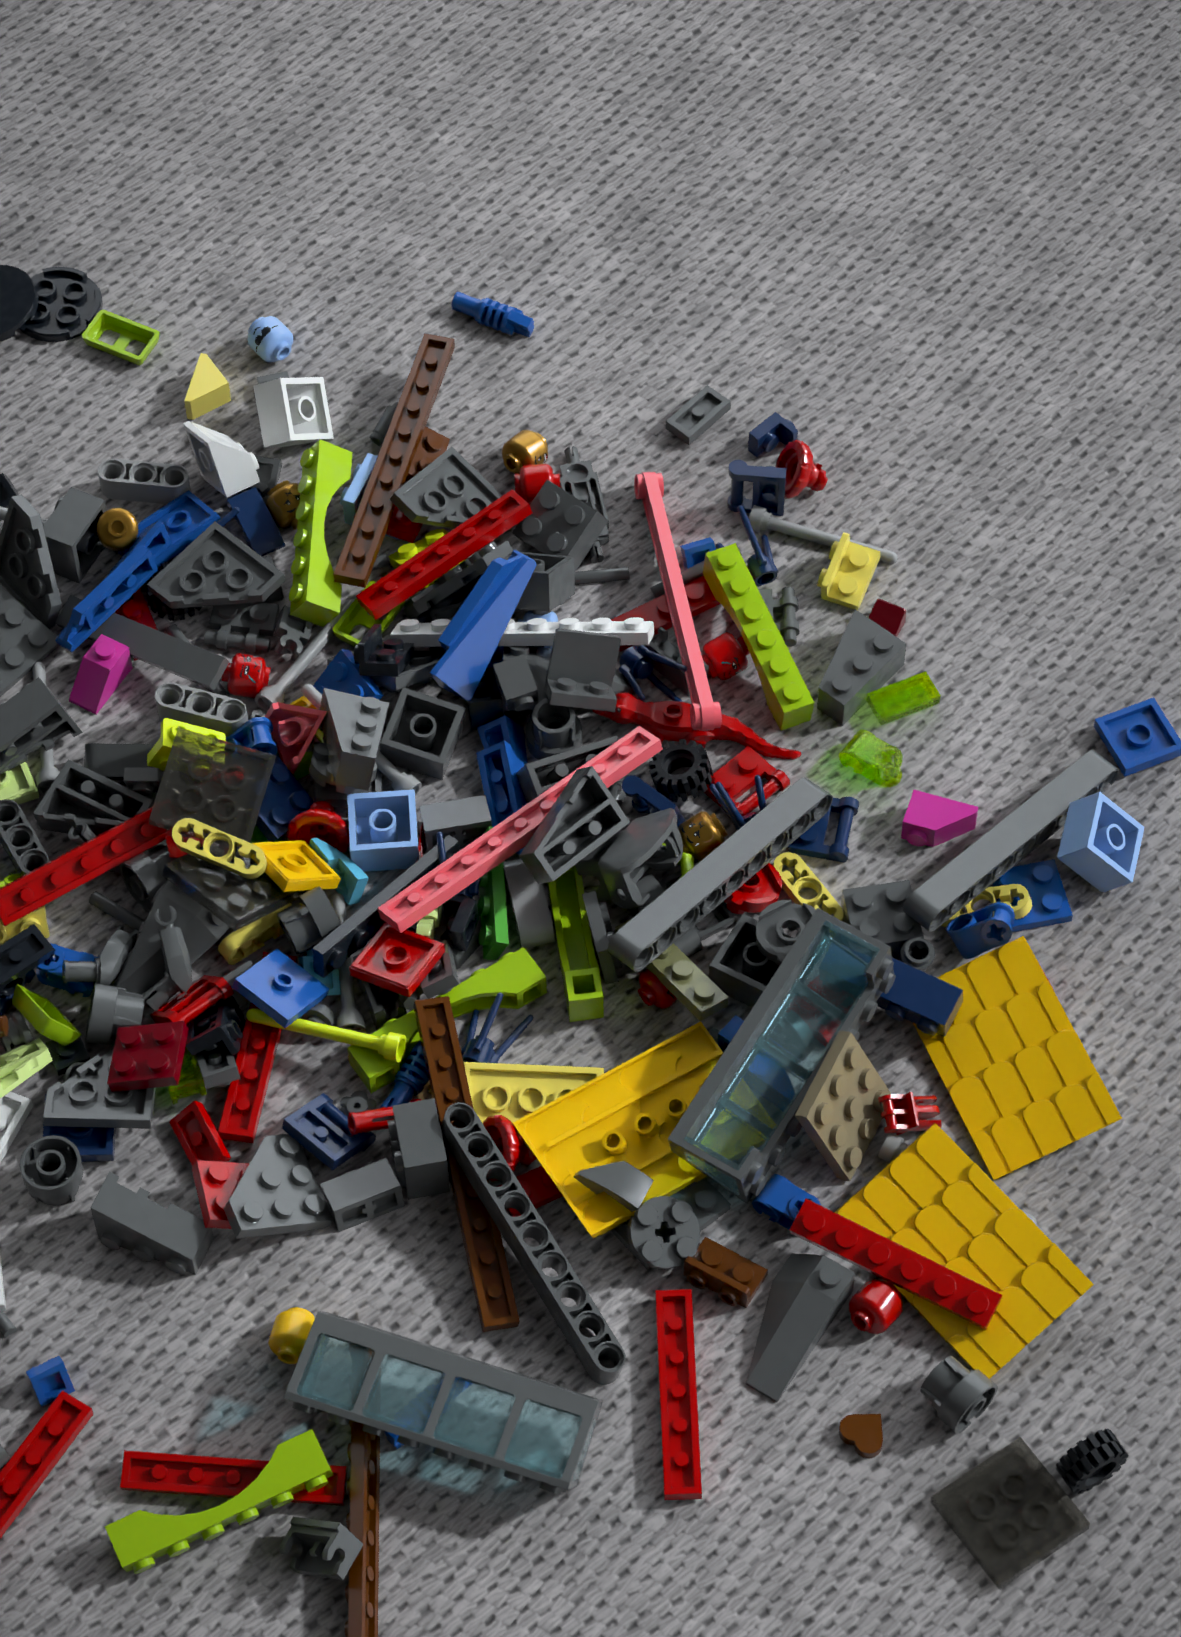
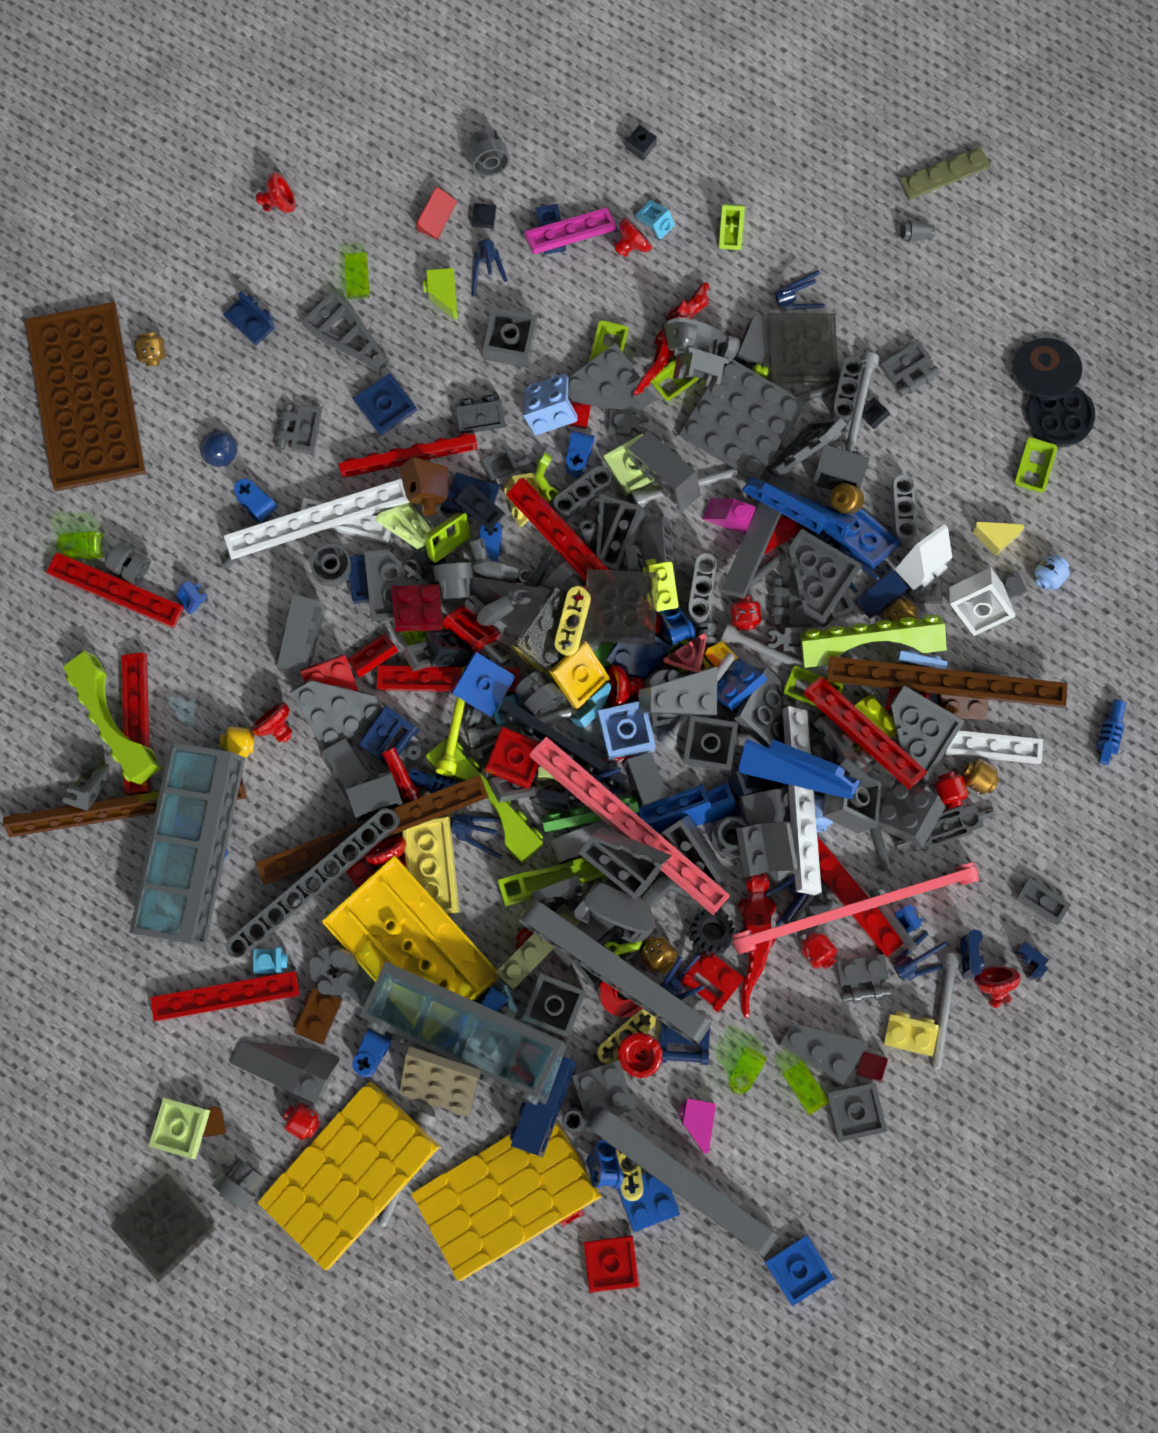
camera: 80 degrees right, 20 degrees up
(274, 1278) = (274, 723): none -> red hair
(380, 657) = (765, 704): black bracket -> none
(490, 427) = (996, 747): none -> white plate
(516, 683) = (752, 801): dark grey brick -> none
(619, 1181) = (359, 933): dark grey slope -> none
(635, 1325) = (269, 961): none -> medium azure bracket
(647, 799) = (667, 921): dark blue plate -> none
(771, 925) = (571, 1012): dark grey plate -> none
(780, 678) = (835, 972): lime arch -> none
(837, 865) = (634, 1060): none -> red hair
(867, 1471) = (179, 1128): none -> yellowish green plate
(896, 1264) = (326, 1131): red plate -> none
(908, 1112) = (449, 1129): red arm -> none
(942, 646) = (857, 1112): none -> dark grey plate
(1092, 1461) = (198, 1280): black tyre -> none
(1100, 842) = (689, 1247): light blue brick -> none
(1112, 947) = (611, 1264): none -> red plate

